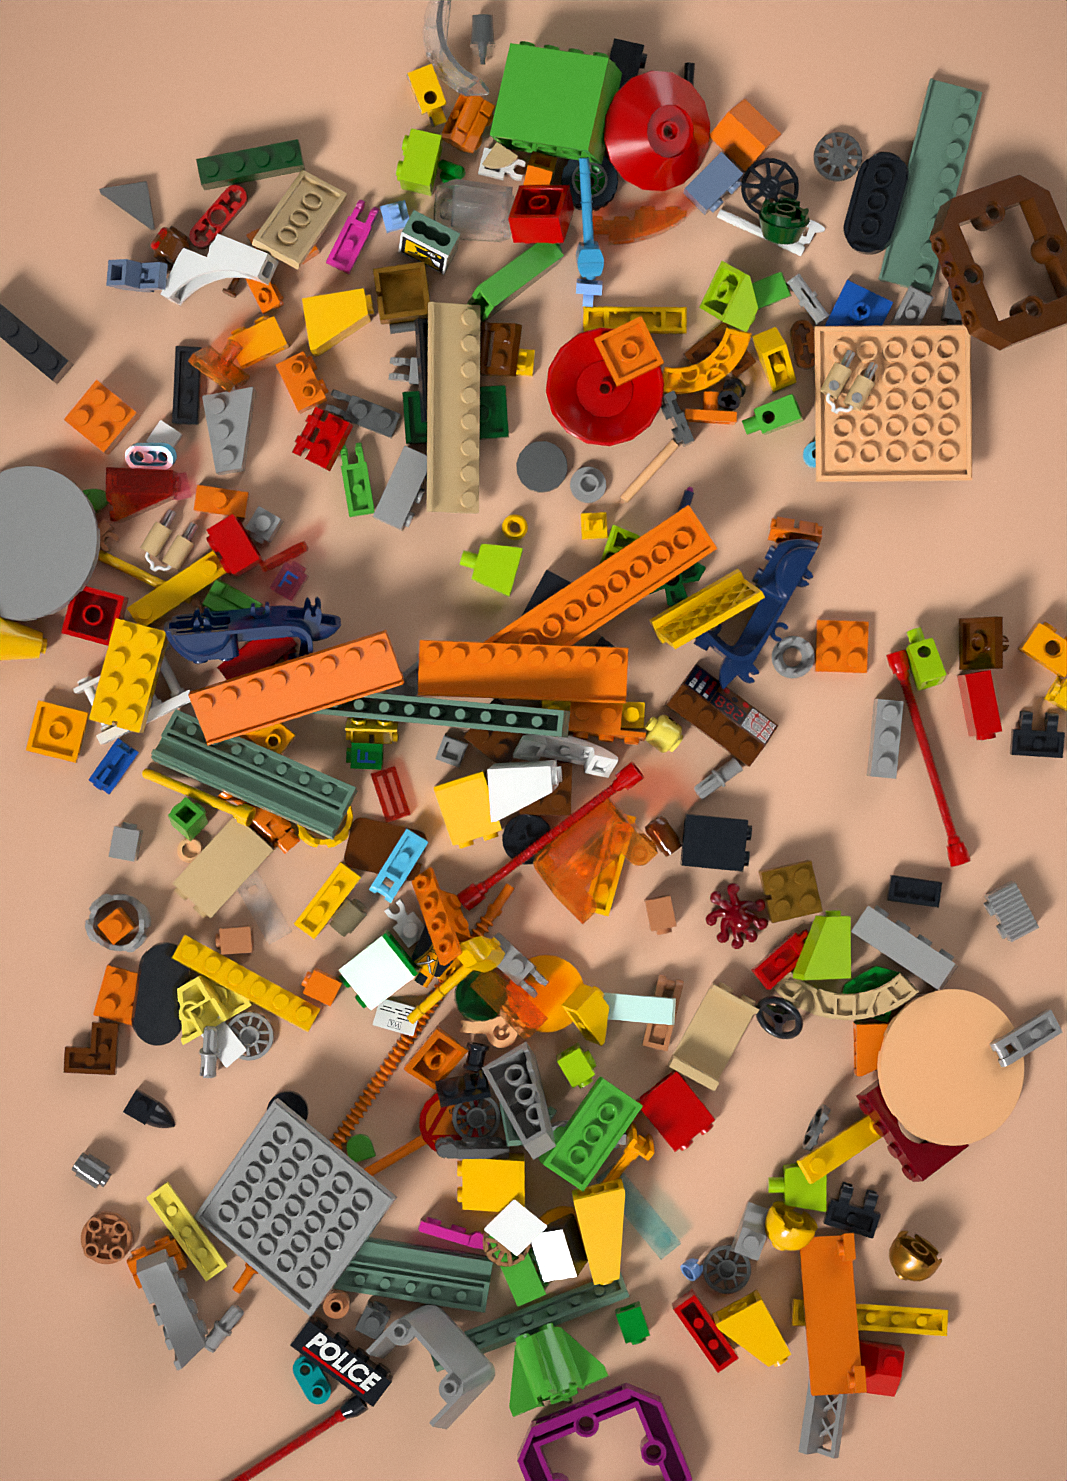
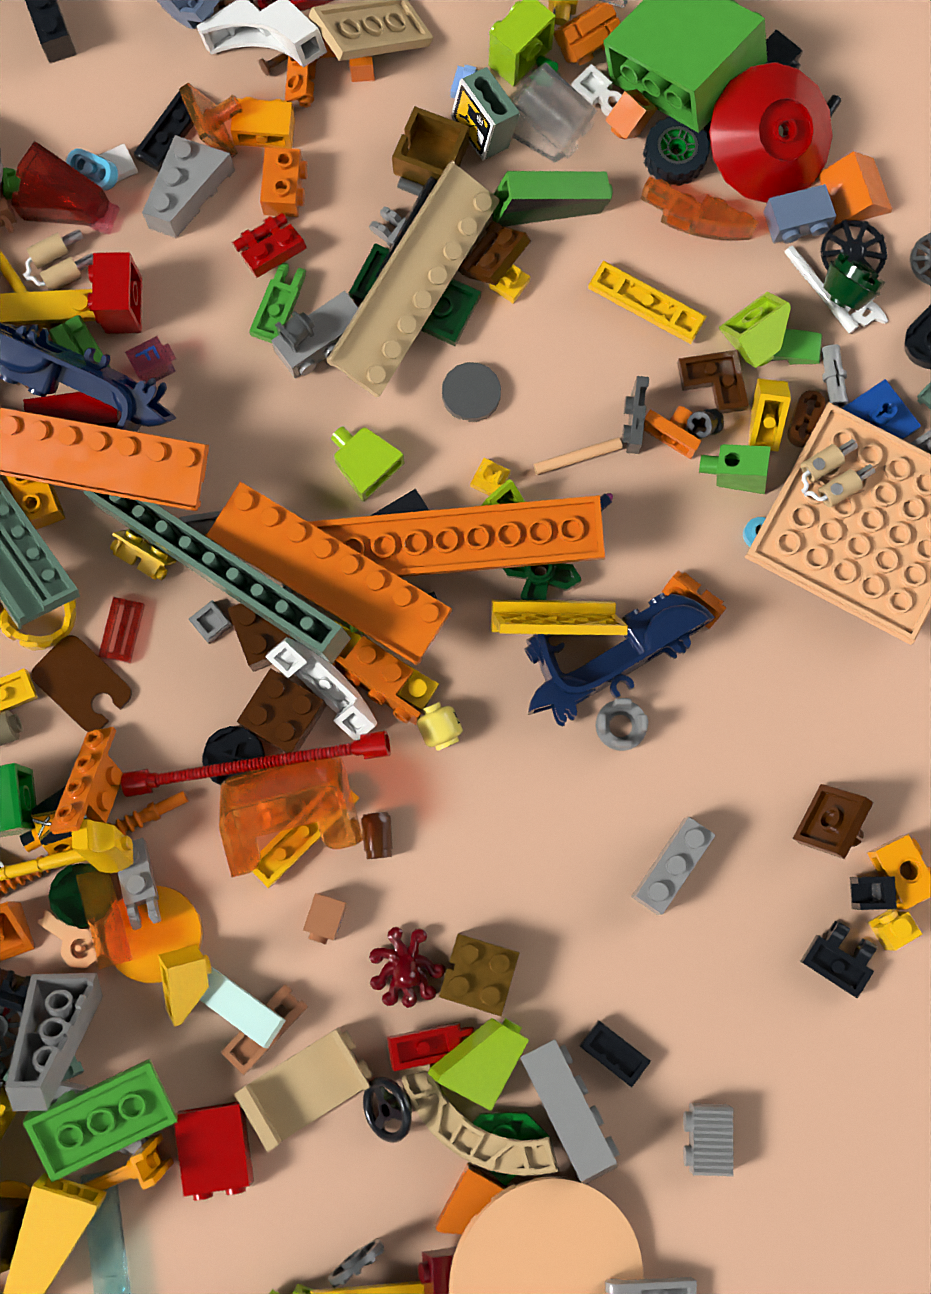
camera: 30 degrees right, 10 degrees down
(102, 417) = (68, 109): orange brick -> none
(221, 501) = (145, 256): orange tile -> none
(263, 525) = (159, 293): light grey brick -> none
(284, 556) = (167, 333): clear red tile -> none
(335, 317) = (350, 135): yellow slope -> none
(351, 239) = (413, 80): dark pink hinge -> none
(365, 756) = (119, 575): green brick -> none
(366, 414) = (327, 247): dark grey hinge -> none
(389, 500) = (295, 329): none -> dark grey brick
(399, 864) = (82, 705): medium azure plate -> none
(408, 926) = (53, 774): white plate -> none
(467, 809) = (188, 686): yellow slope -> none
(475, 1056) = (36, 958): black bush -> none
(499, 157) = (600, 78): tan tile -> none
(514, 519) = (409, 426): yellow plate -> none
(519, 785) = (249, 686): white slope -> none
(541, 214) = (611, 145): red brick -> none
(577, 1065) = (134, 1033): lime brick -> none
(587, 412) = (587, 317): red dish -> none
(588, 253) = (636, 207): dark azure piece -> none
(588, 289) = (617, 248): light blue tile -> none
(588, 484) = (507, 434): light grey piece -> none
(629, 351) = (624, 317): orange plate -> none
(712, 369) = (697, 388): light orange tile -> none
(715, 842) = (428, 874): black brick -> none
(718, 778) = (470, 807): light grey axle -> none
(722, 715) = (511, 743): reddish brown slope -> none
(841, 646) = (679, 743): orange plate -> none
(925, 671) = (760, 806): lime torso -> none
(956, 850) = (686, 1034): red hose -> none
(980, 704) = (797, 886): red brick -> none
(1035, 678) = (873, 893): none -> black window

